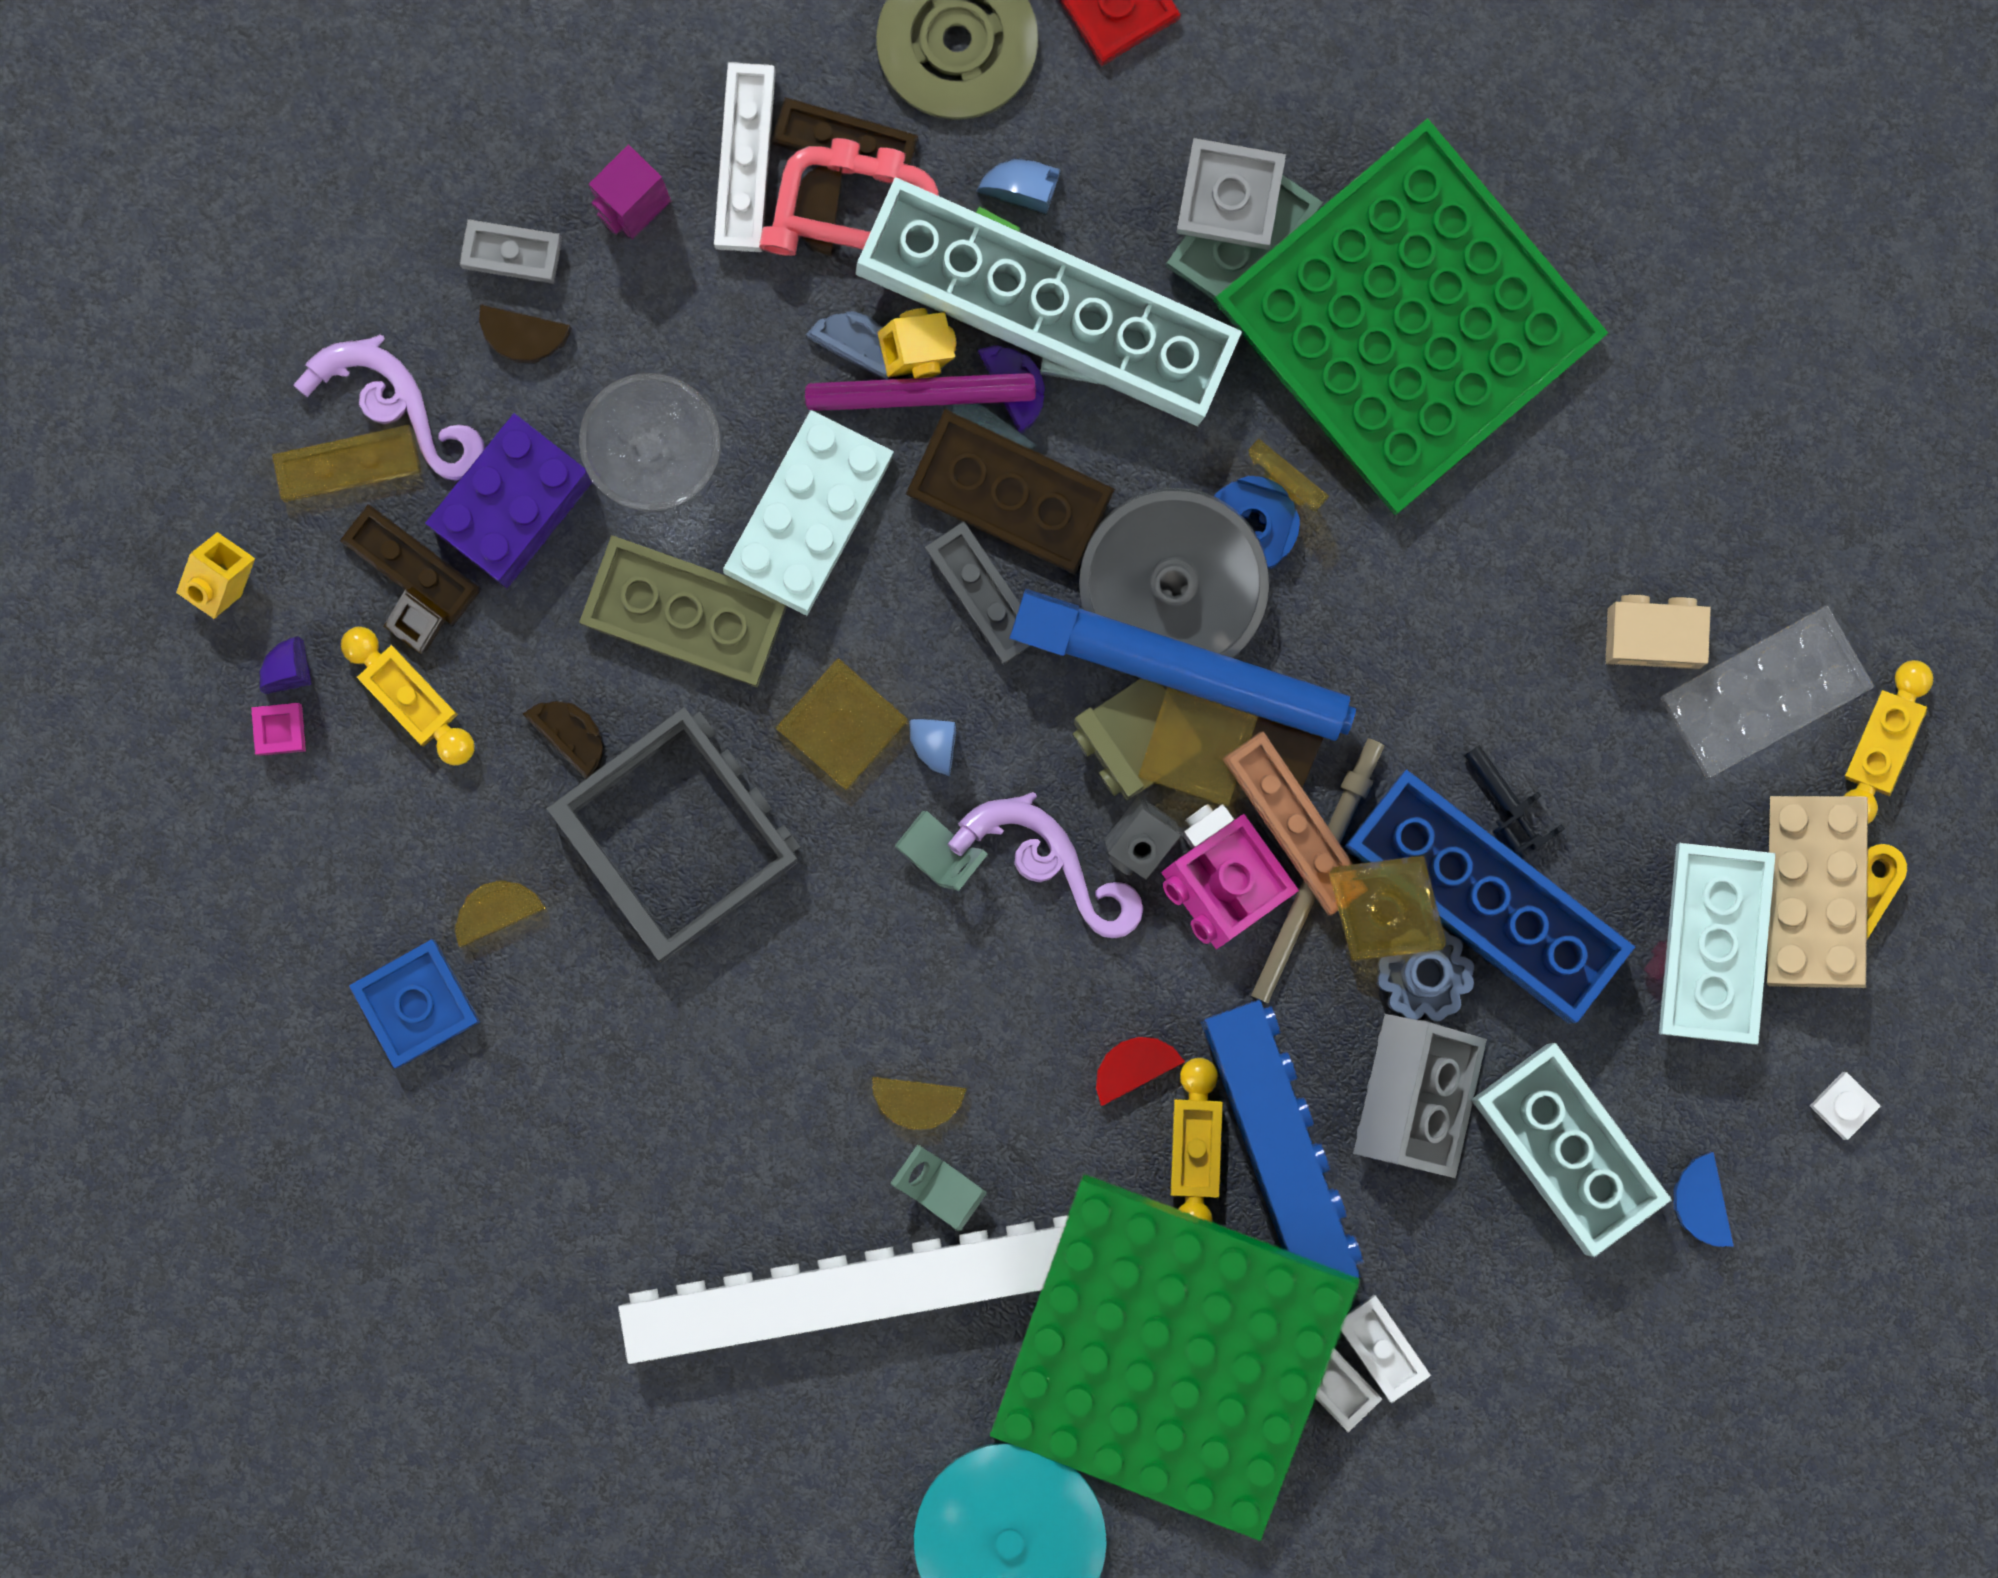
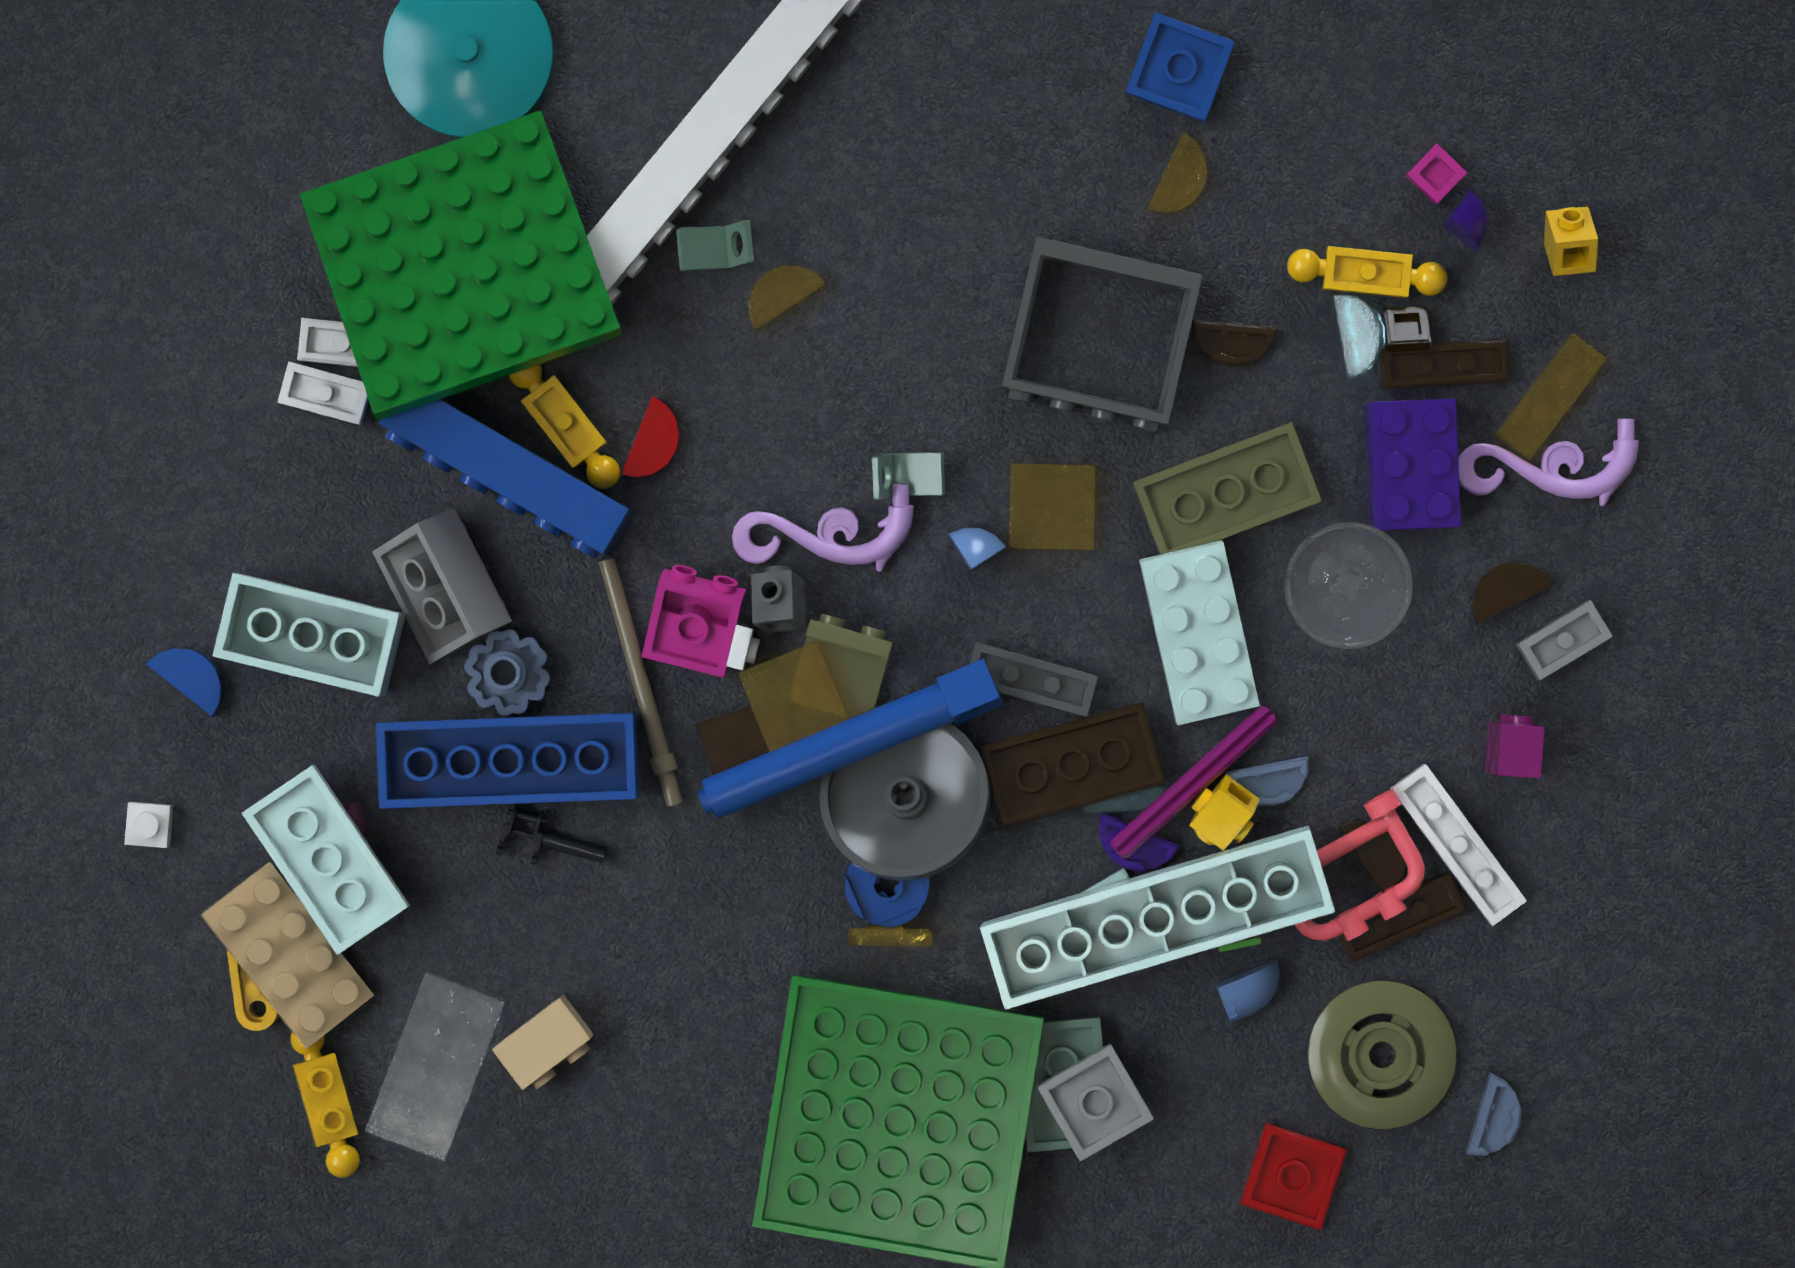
camera: 130 degrees right, 5 degrees up
(457, 649) = (1360, 333): none -> clear light blue tile
(1288, 815) = (682, 700): nougat tile -> none
(1387, 908) = (569, 693): clear yellow tile -> none

